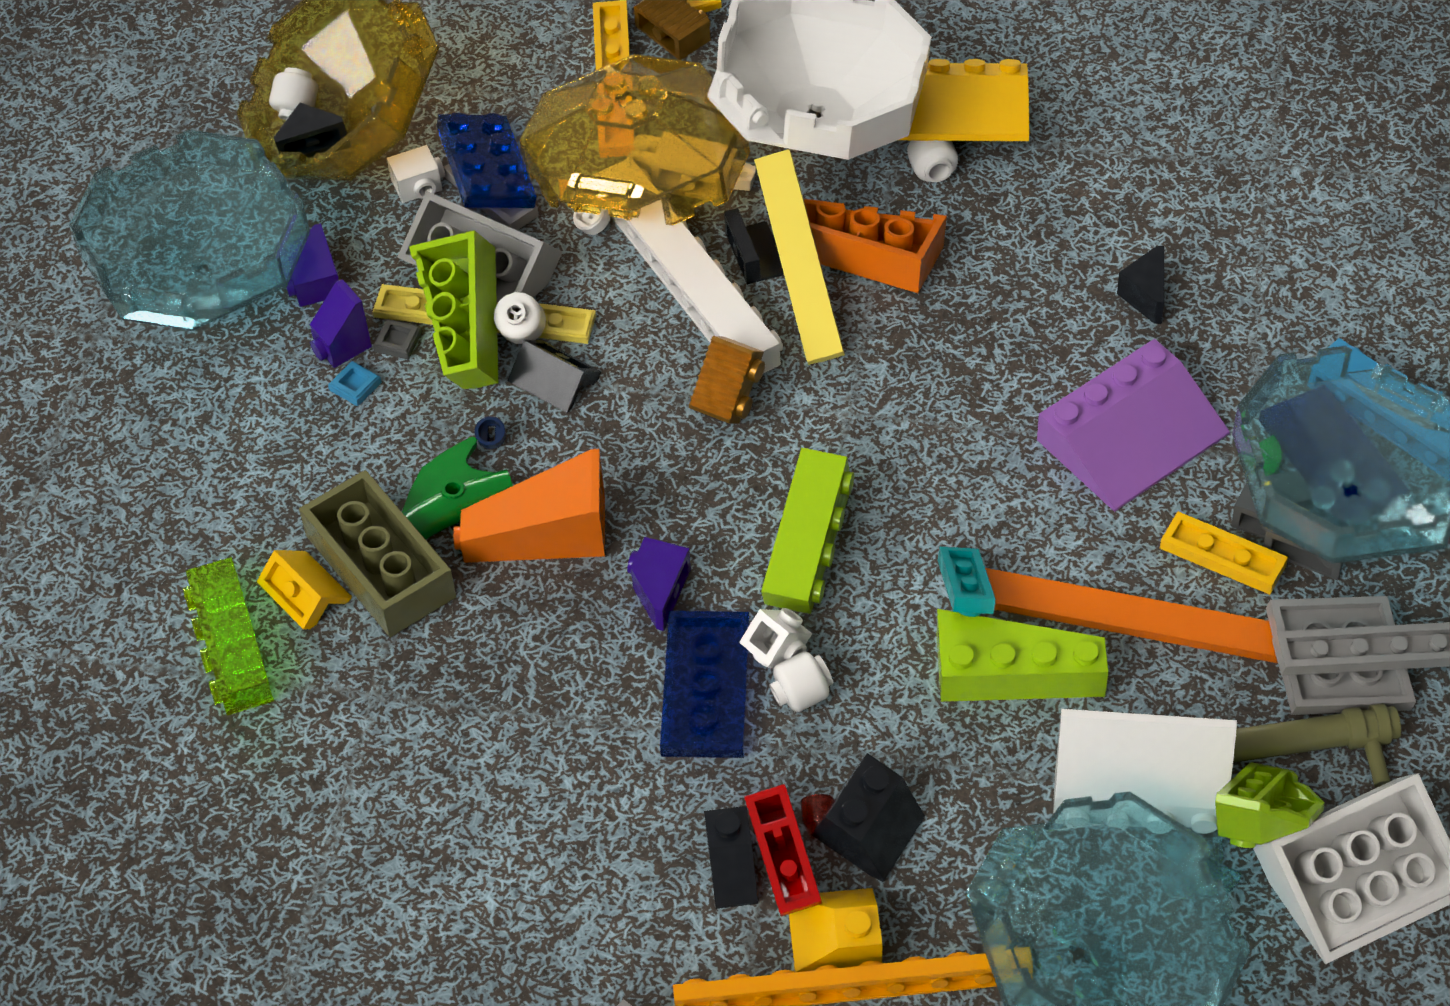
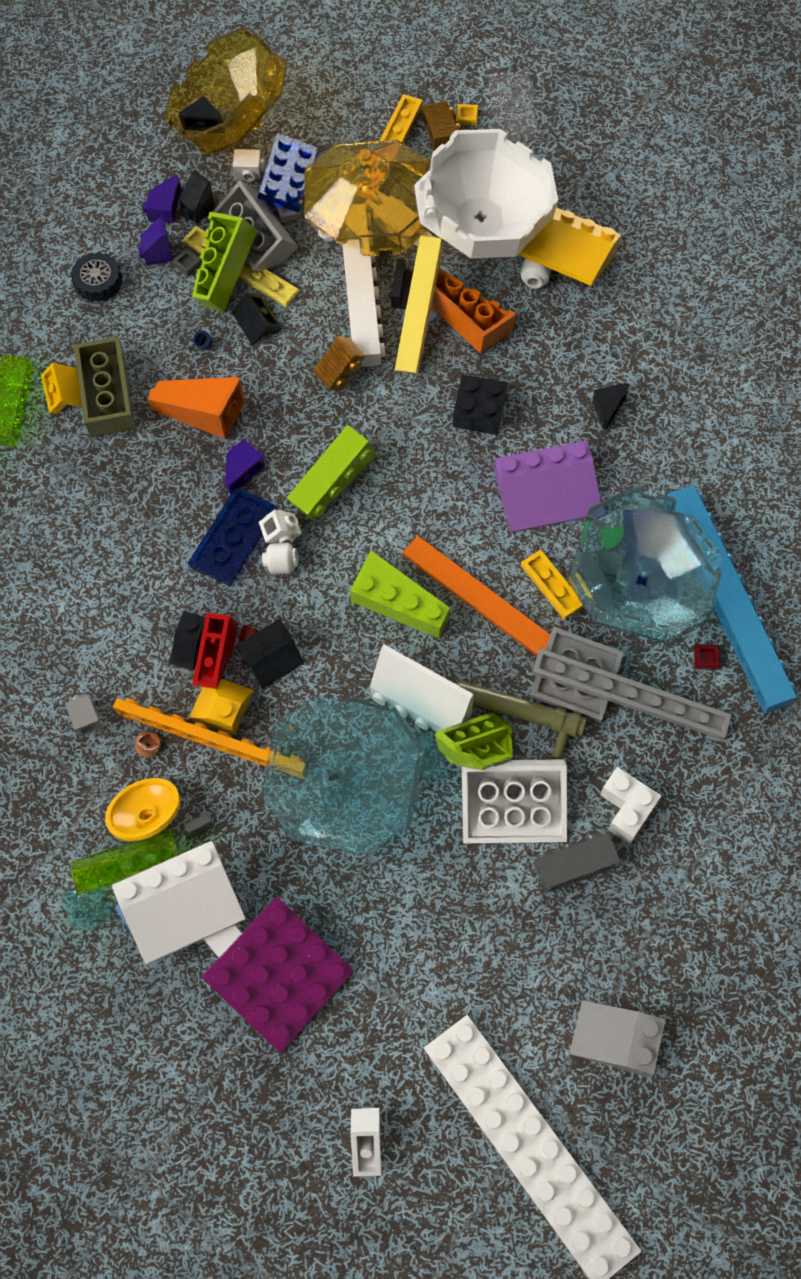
camera: 25 degrees right, 15 degrees up
(187, 208) = (96, 139): clear light blue windscreen -> none
(263, 393) = (86, 275): none -> black wheel
(290, 89) = (207, 86): white head -> none
(354, 383) = (151, 279): dark azure tile -> none
(367, 242) = (196, 198): none -> black slope
(448, 487) = (162, 364): green pin -> none
(517, 329) = (250, 278): white head -> none
(966, 356) = (480, 404): none -> black brick
(966, 581) = (397, 540): teal plate -> none

